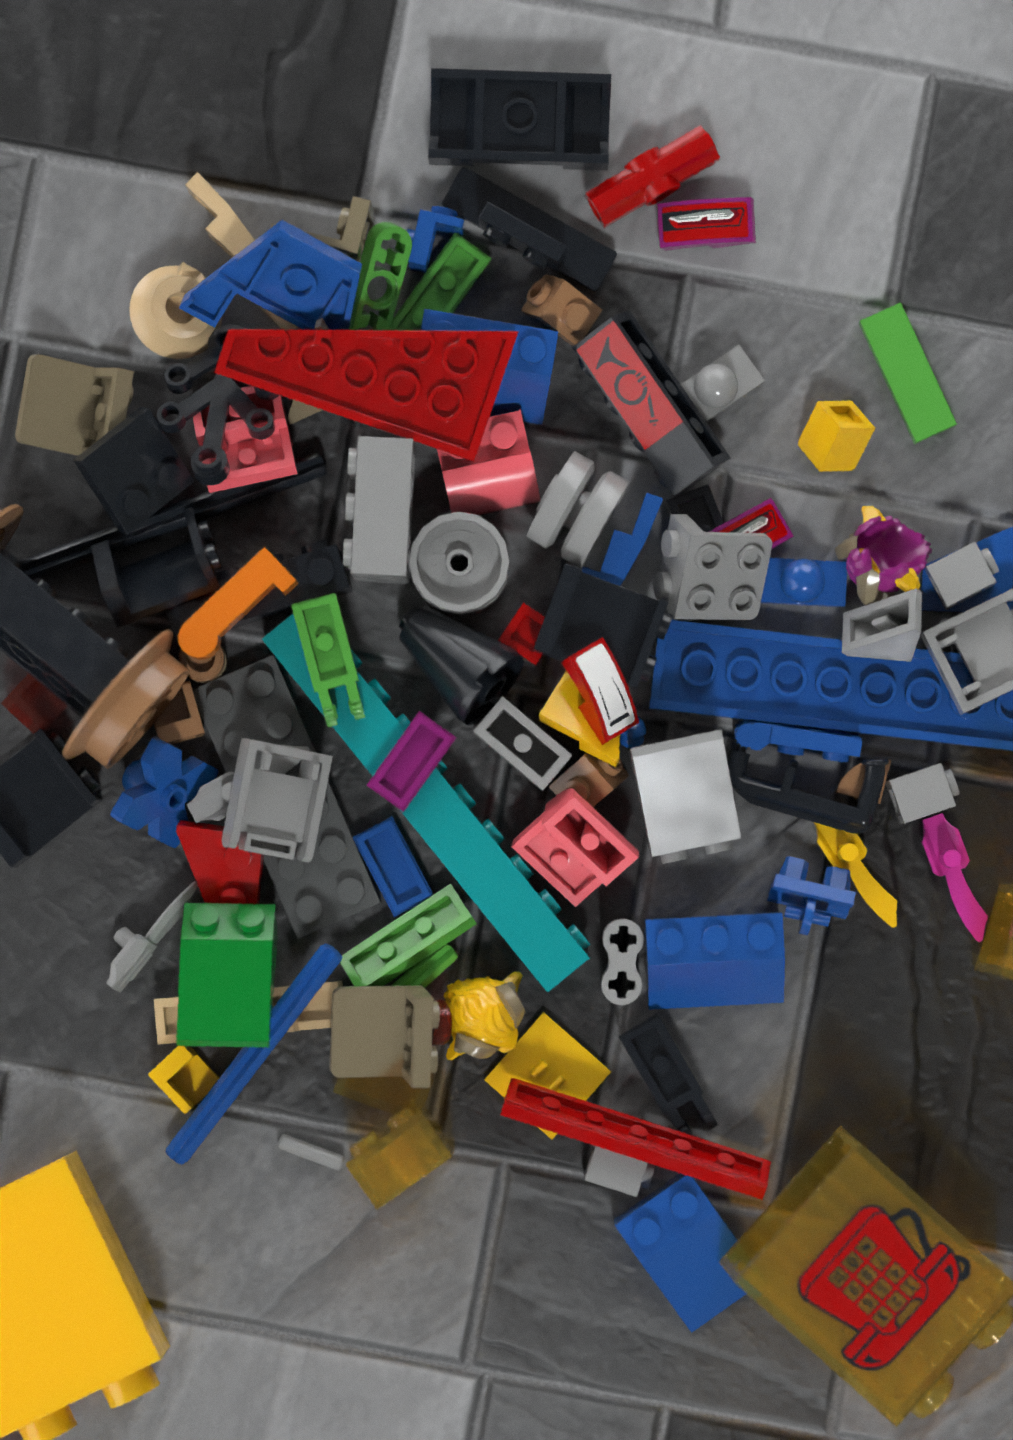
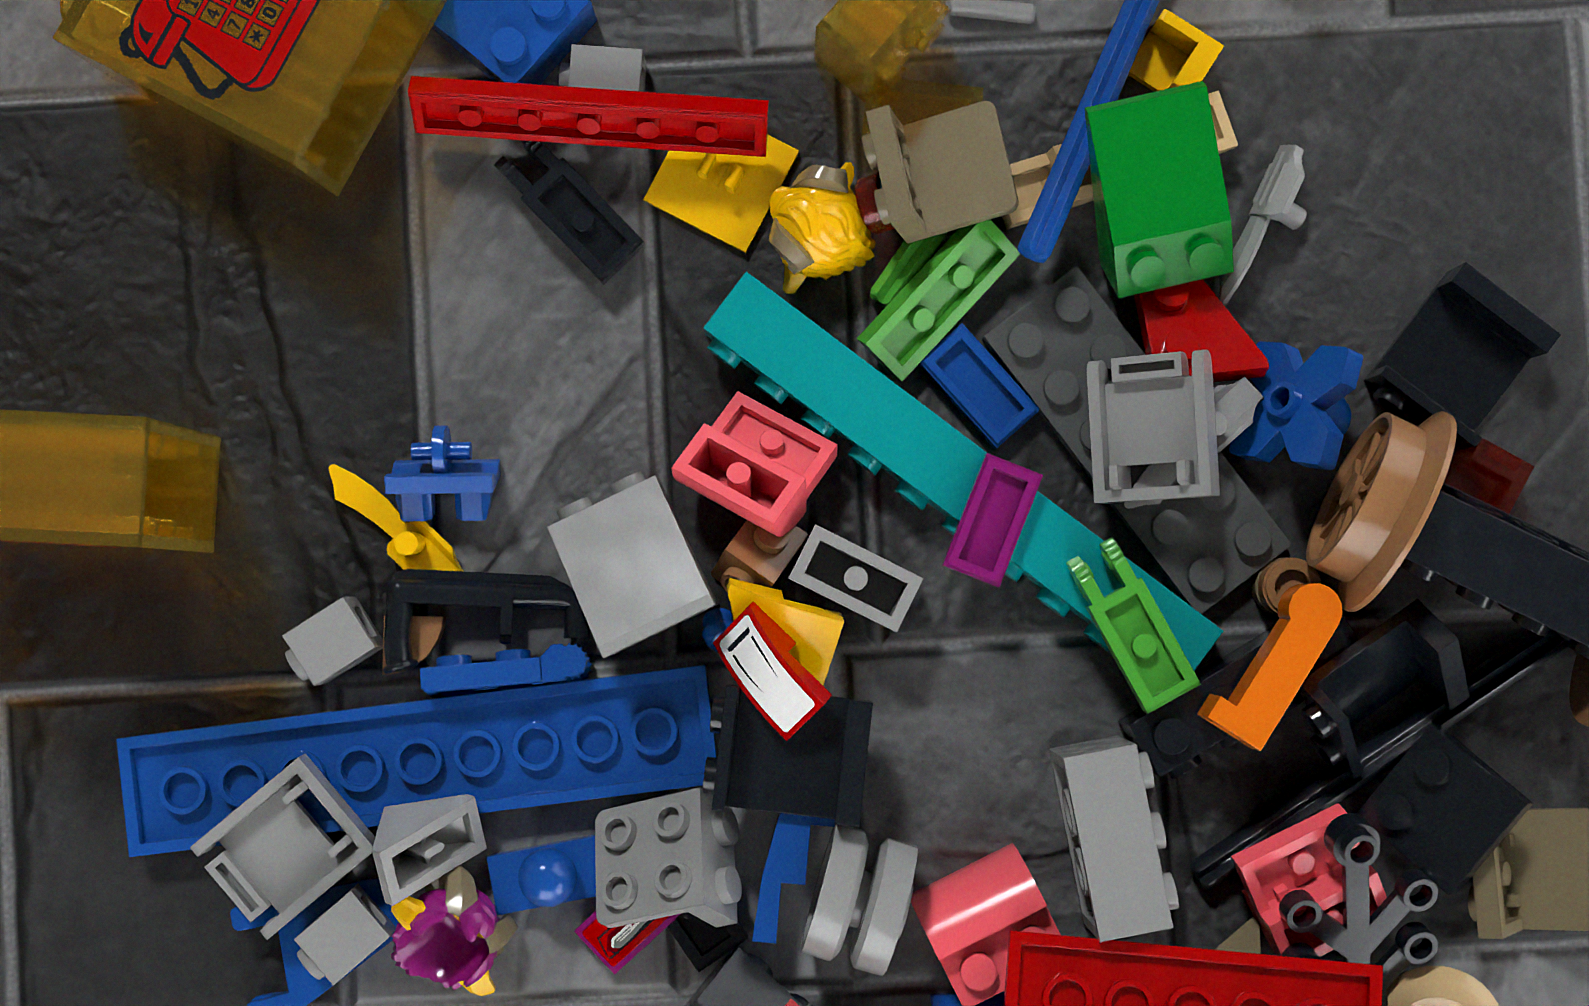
camera: 165 degrees right, 0 degrees up
(180, 718) = (1295, 504): medium nougat panel -> none
(460, 661) = (961, 664): black cone -> none
(466, 590) = (1003, 826): light grey wheel -> none
(523, 633) = (890, 721): red tile -> none
(622, 961) = (661, 335): light grey axle -> none
(715, 960) = (545, 369): blue slope -> none
(947, 857) = (285, 568): dark pink piece -> none

